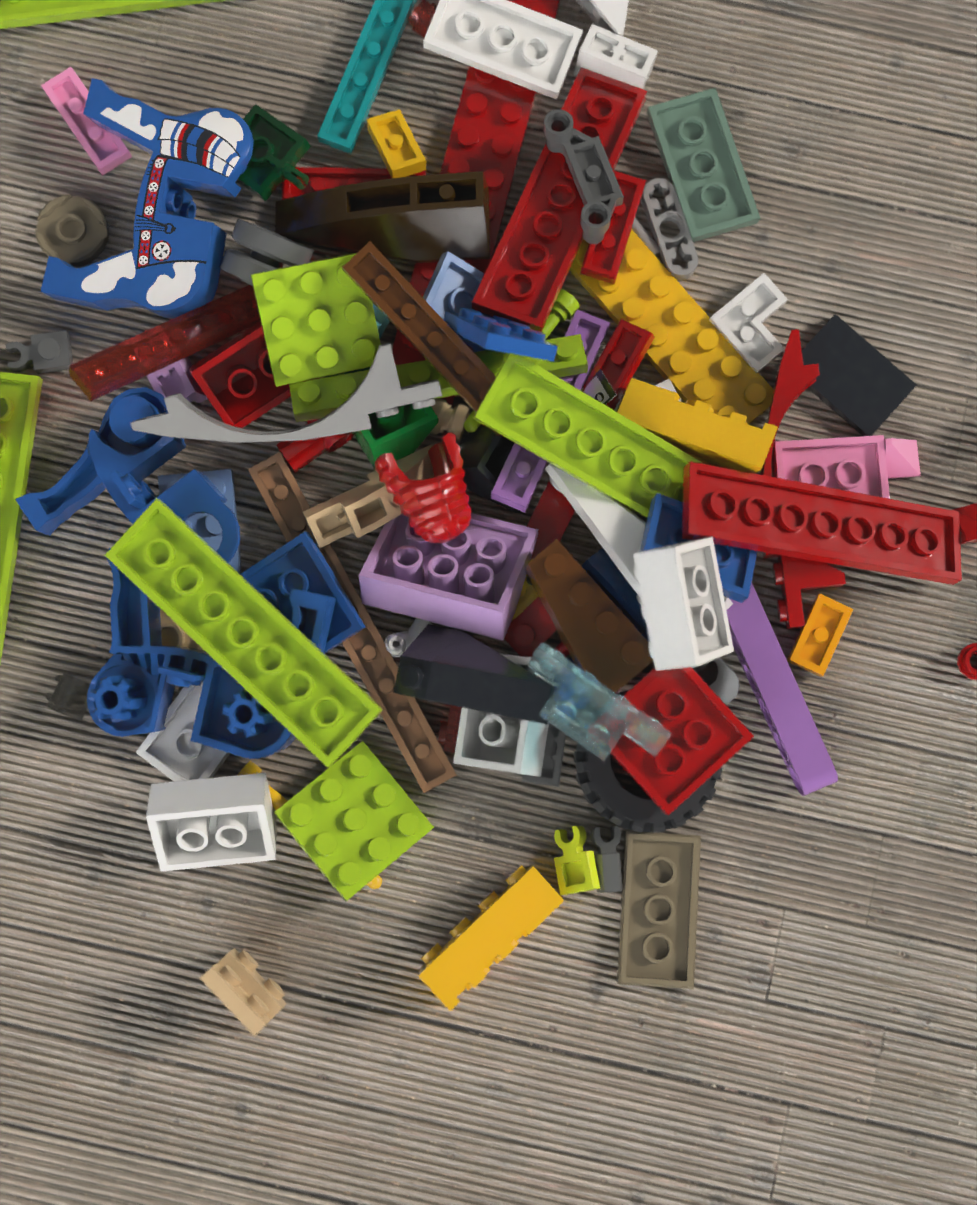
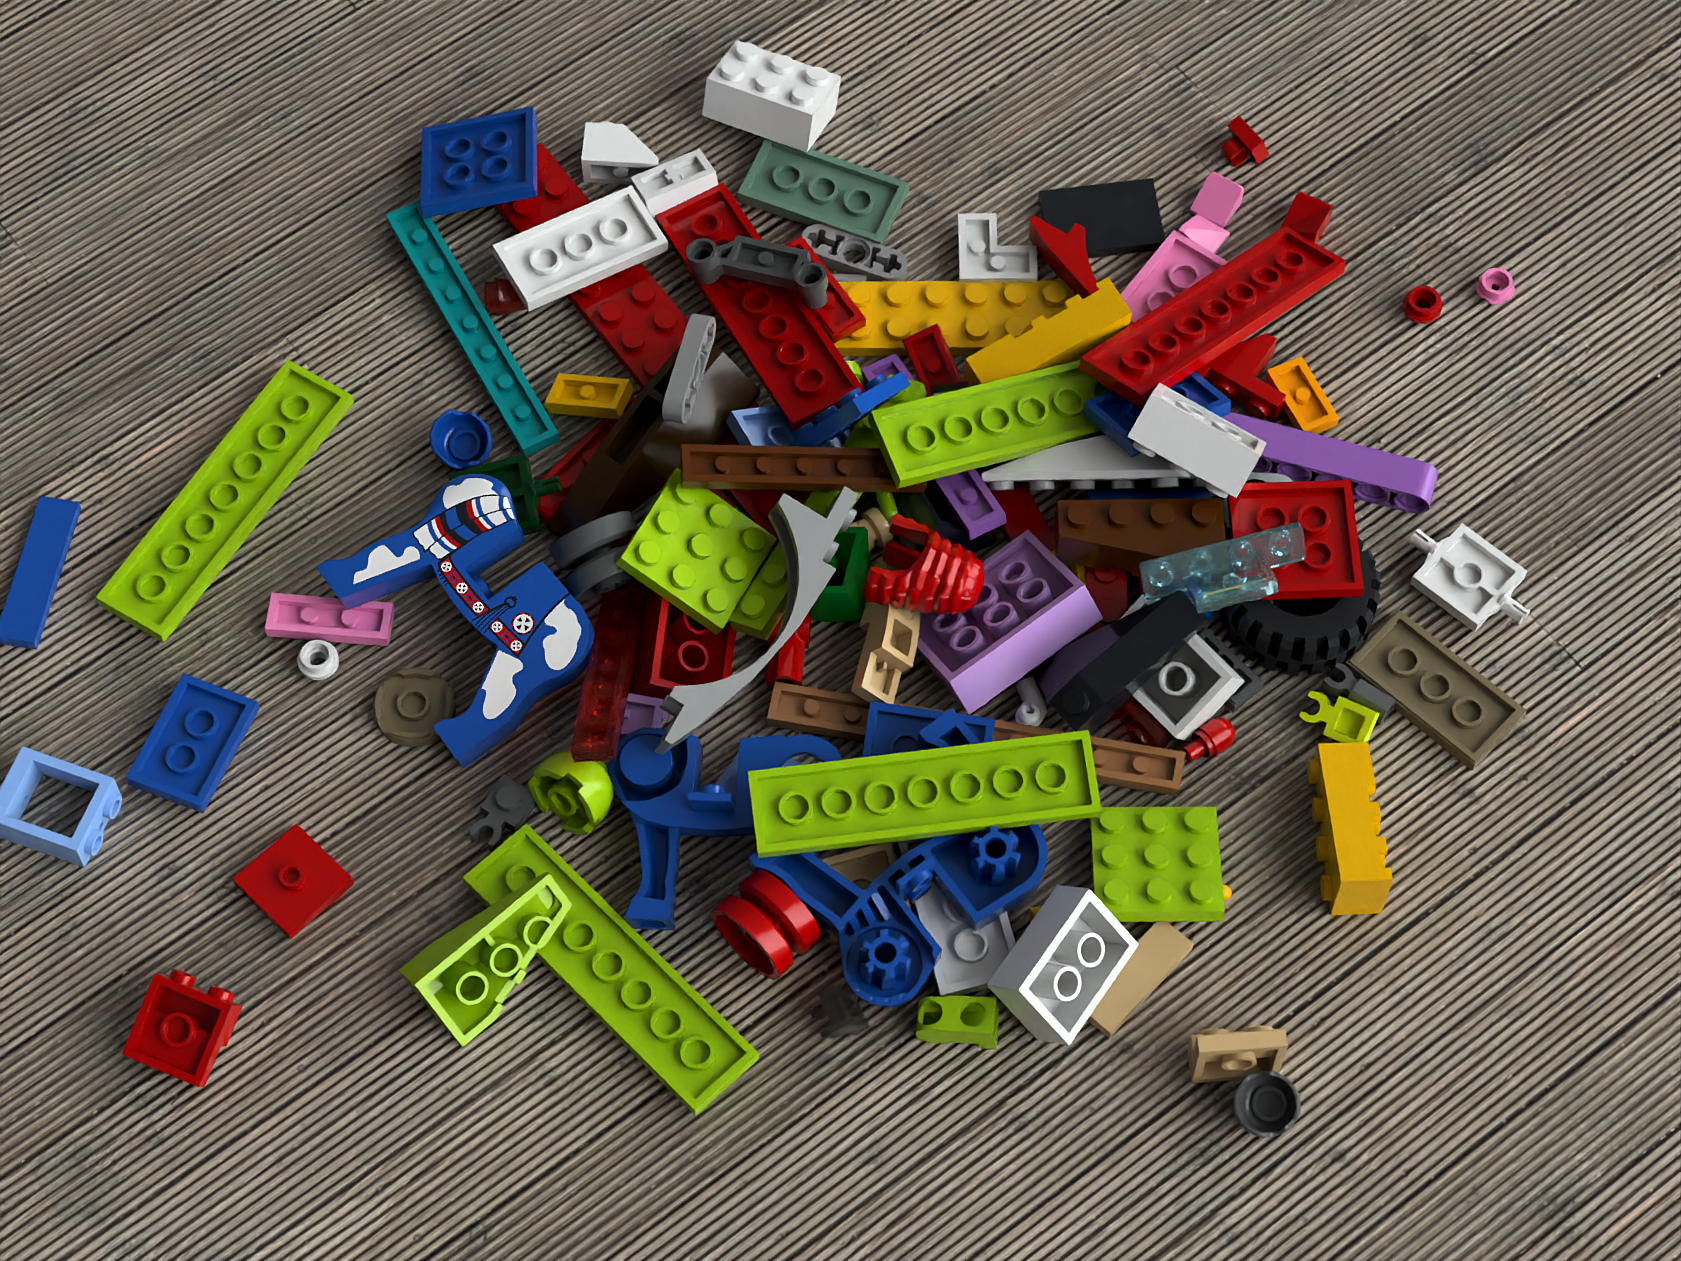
camera: 45 degrees left, 20 degrees down
(49, 130) = (314, 650): none -> white plate
(77, 406) = (574, 791): none -> lime cylinder
(78, 597) = (766, 924): none -> red wheel
(125, 778) = (958, 1020): none -> lime leg
(225, 1039) = (1266, 1104): none -> dark grey hair
(287, 88) = (460, 440): none -> blue hair
(287, 873) = (1147, 967): none -> tan tile
(444, 194) = (689, 368): none -> light grey beam
(485, 782) = (1210, 739): none -> red cylinder
(746, 63) = (771, 95): none -> white brick
(769, 867) = (1468, 577): none -> white plate
(938, 445) = (1217, 199): none -> bright pink slope

